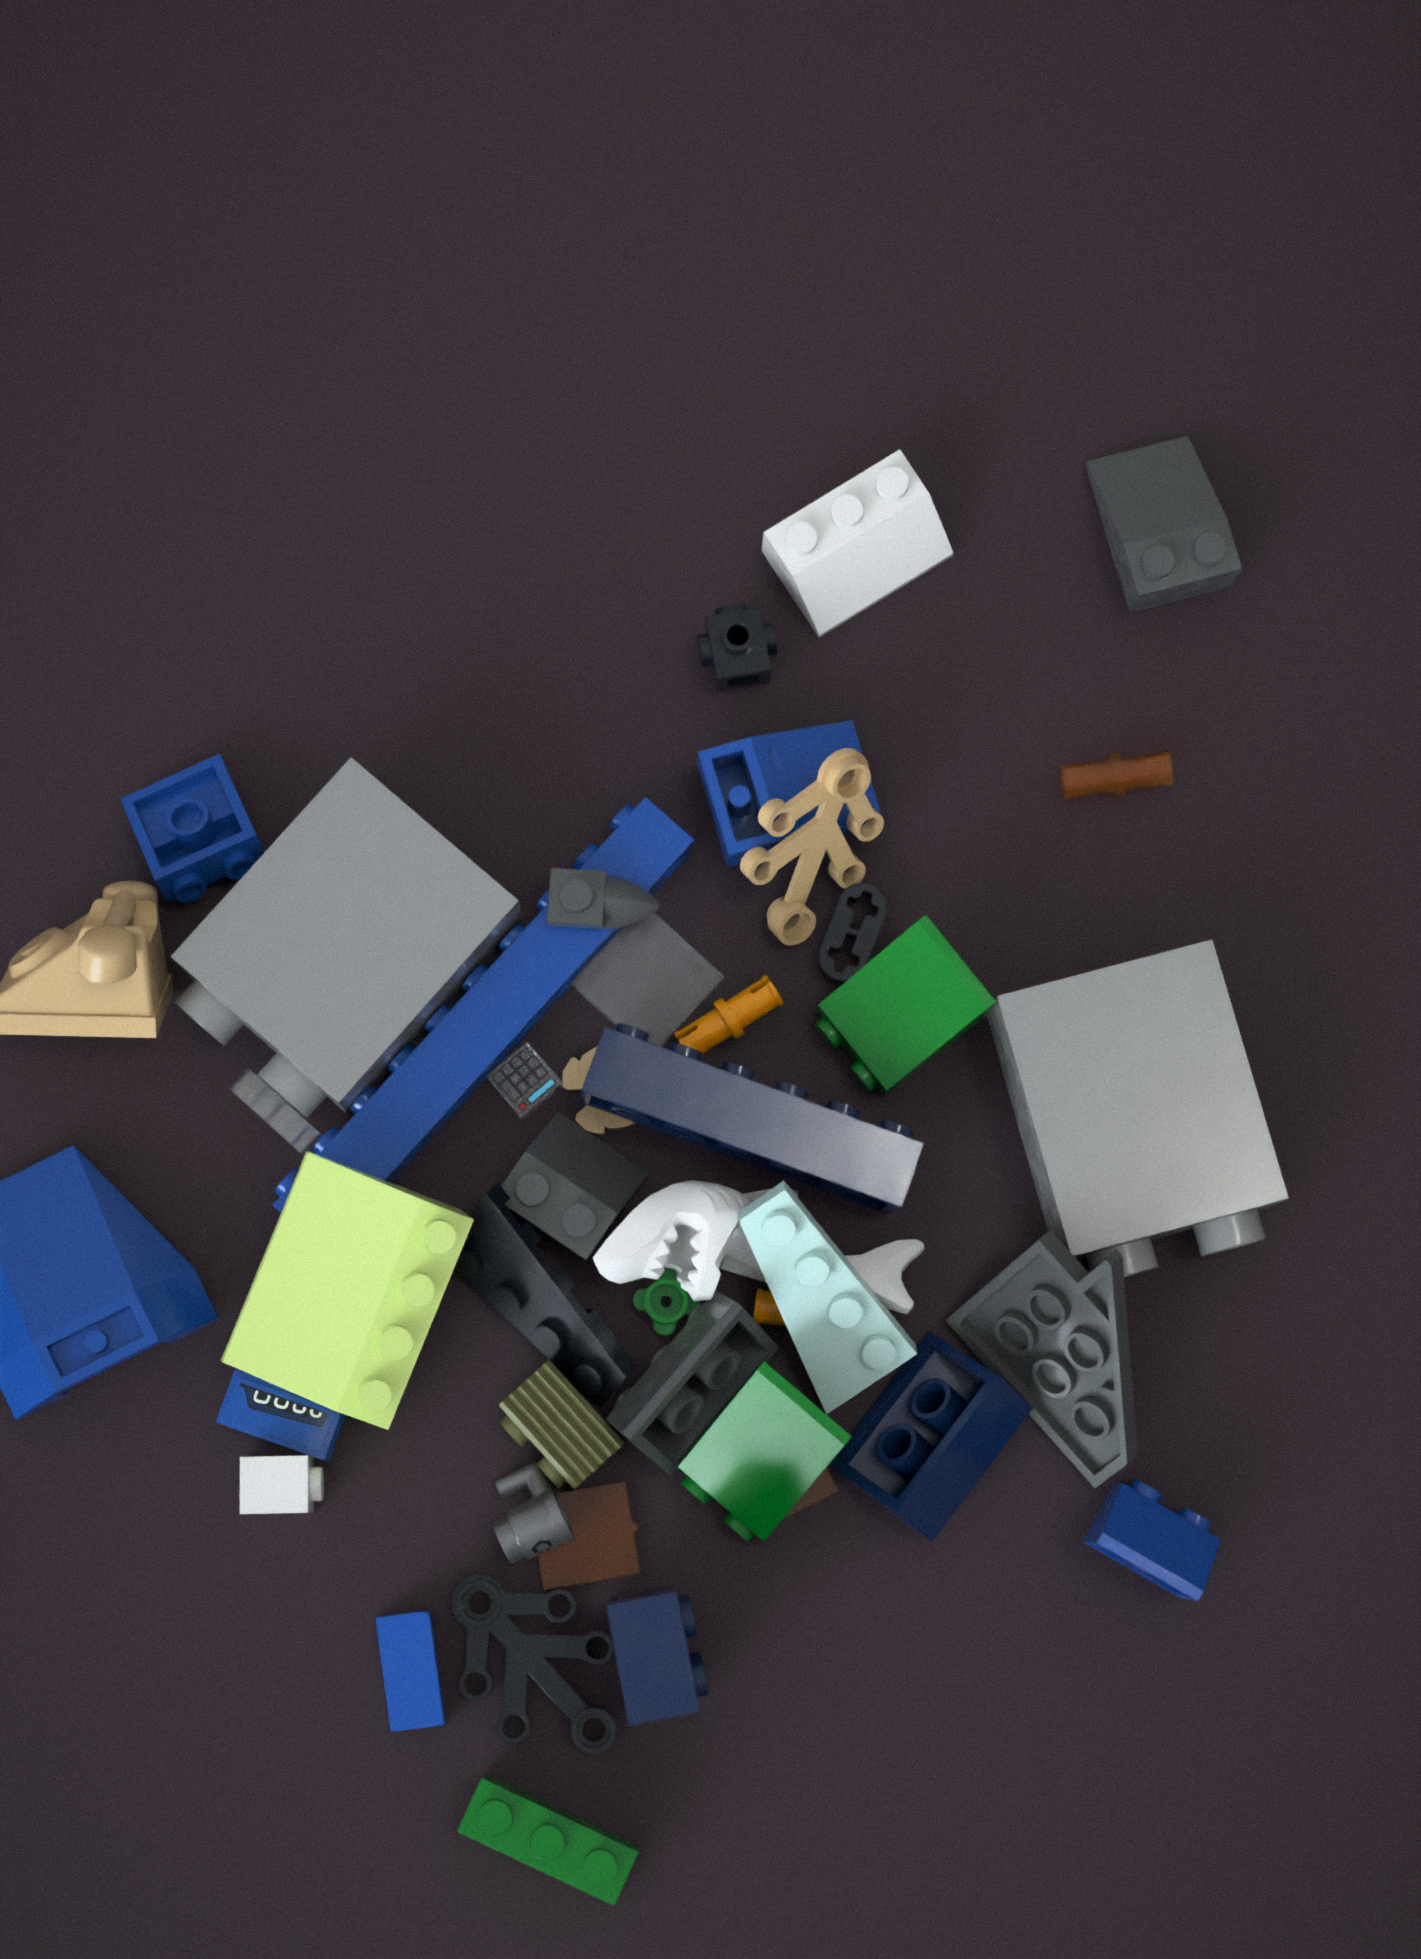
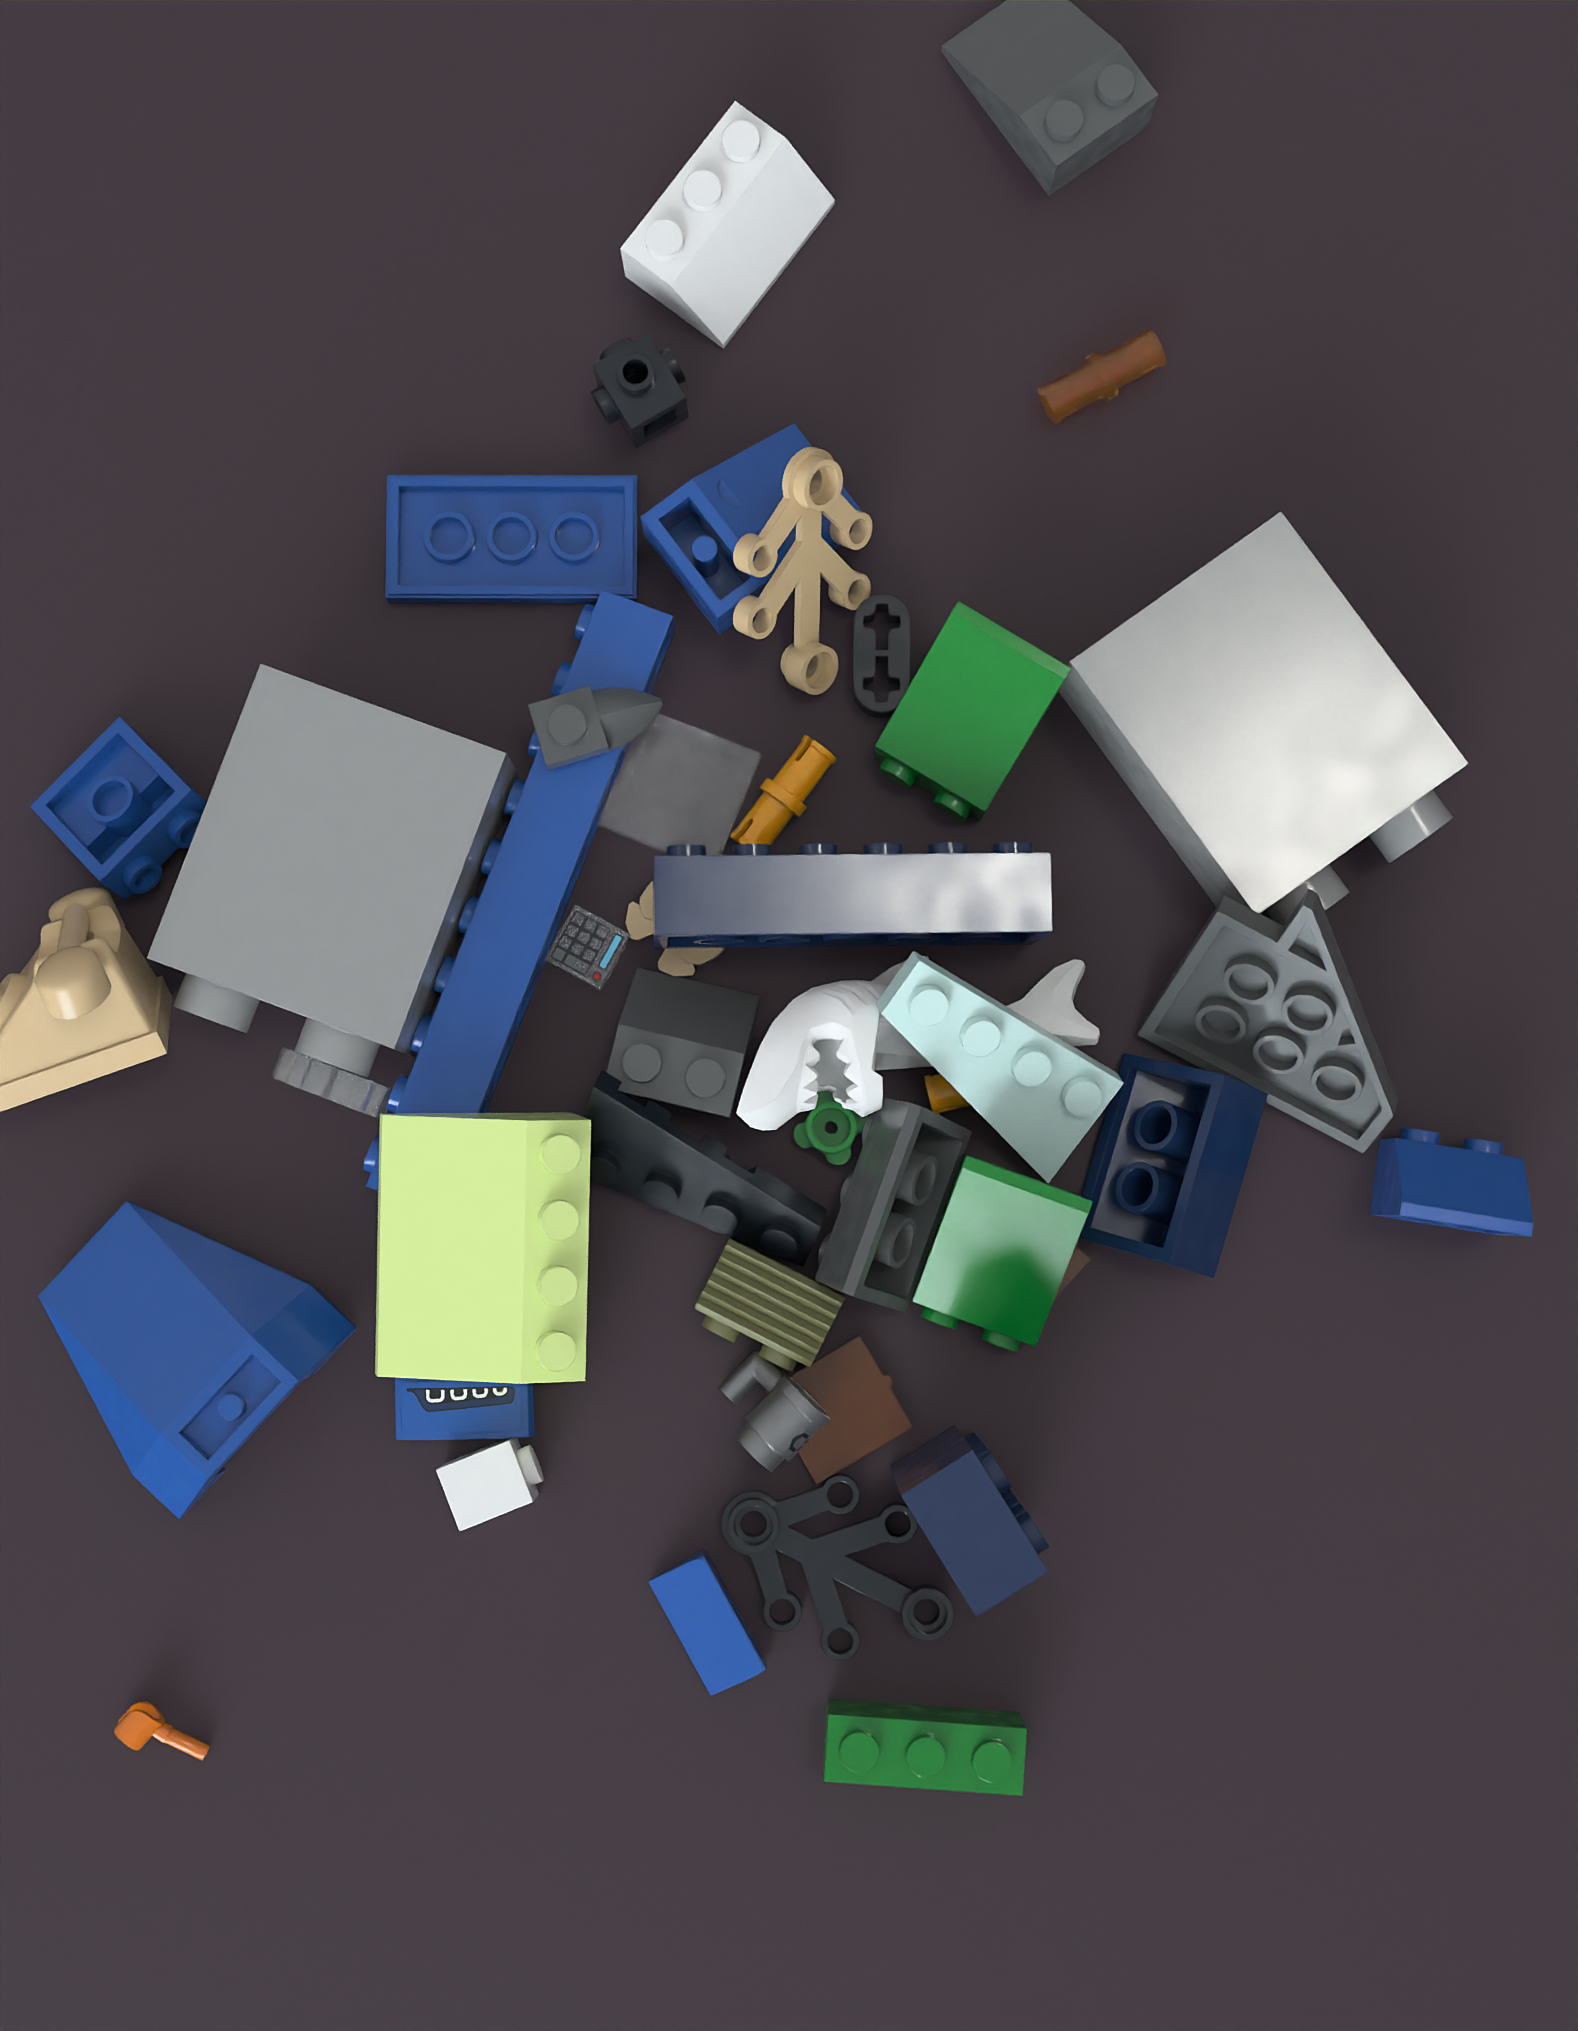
camera: 15 degrees left, 5 degrees up
(589, 727) = (511, 538): none -> blue tile

